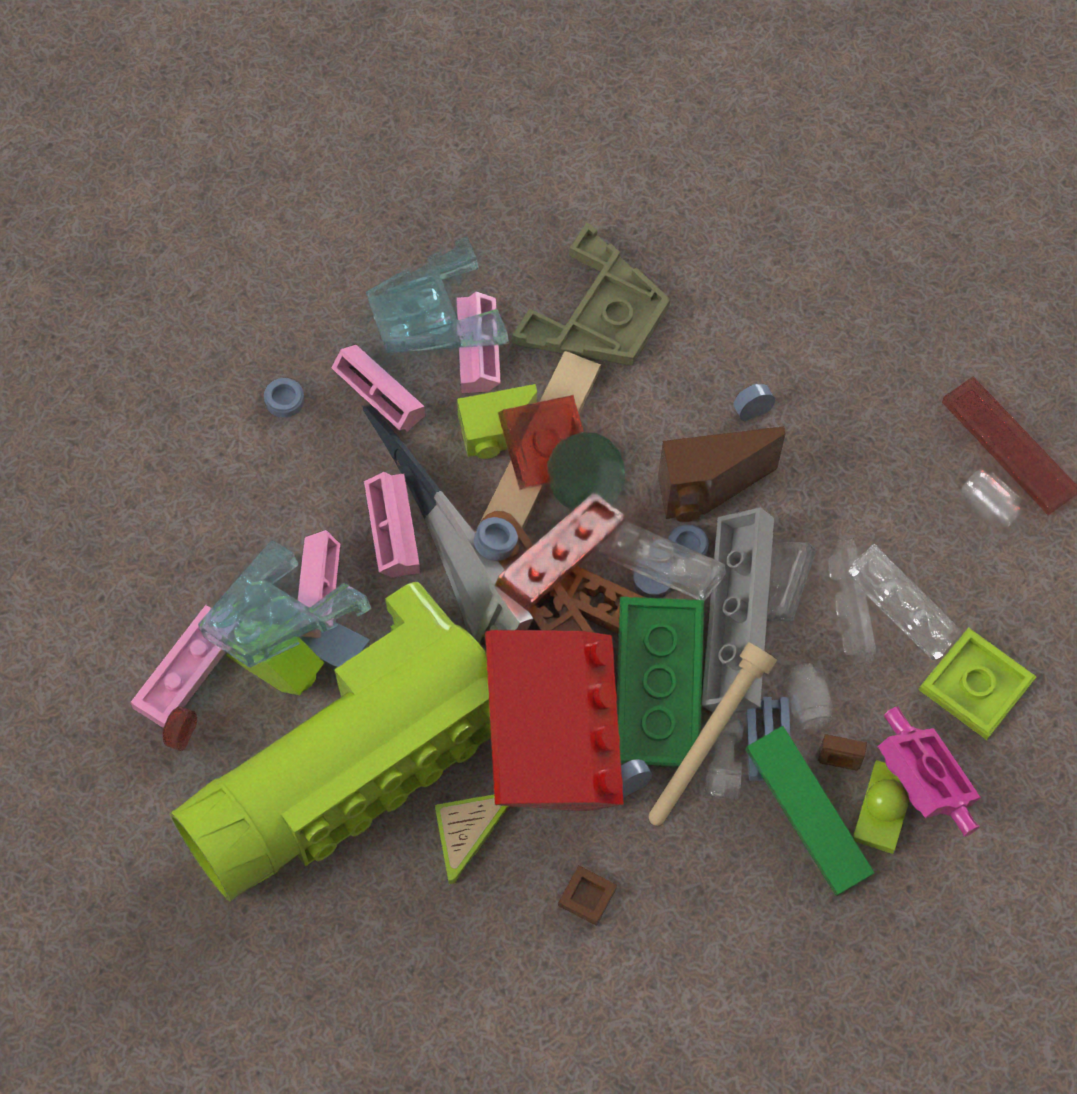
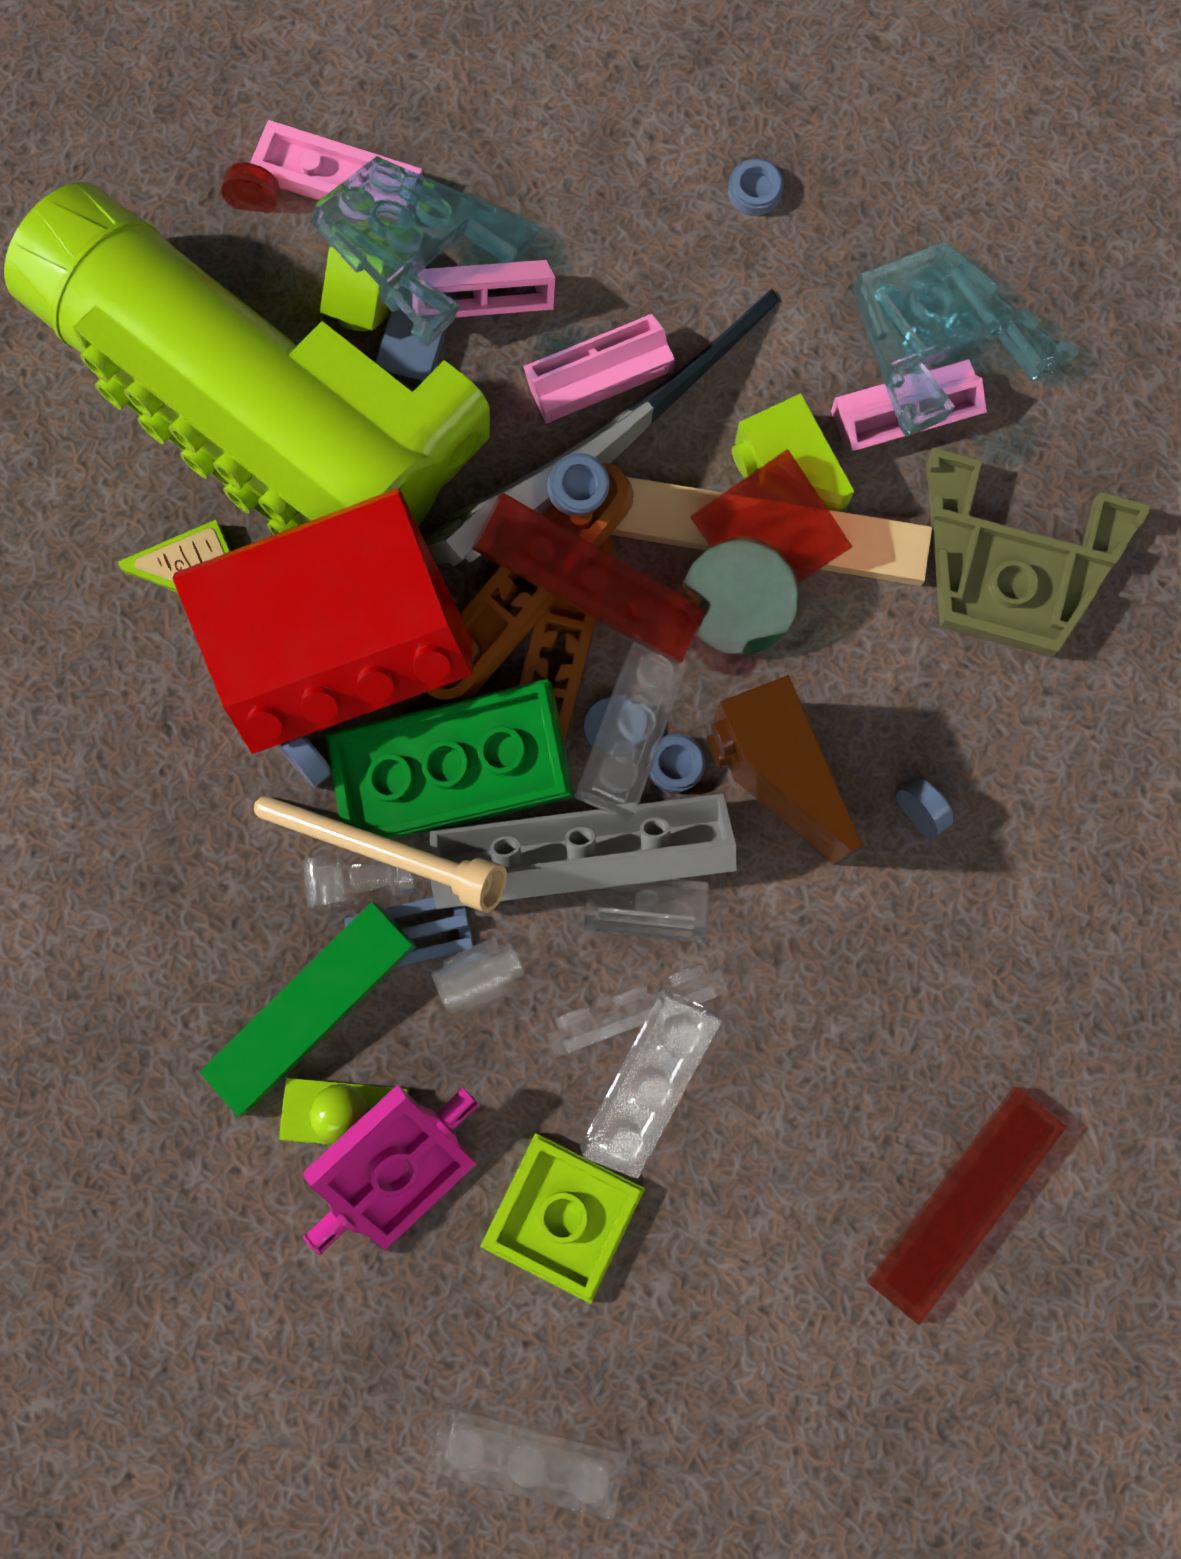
camera: 80 degrees right, 15 degrees up
(382, 384) = (799, 296): bright pink piece -> none
(587, 895) = (136, 741): reddish brown tile -> none
(842, 752) = (401, 1038): reddish brown tile -> none
(992, 498) = (862, 1190): clear brick -> none

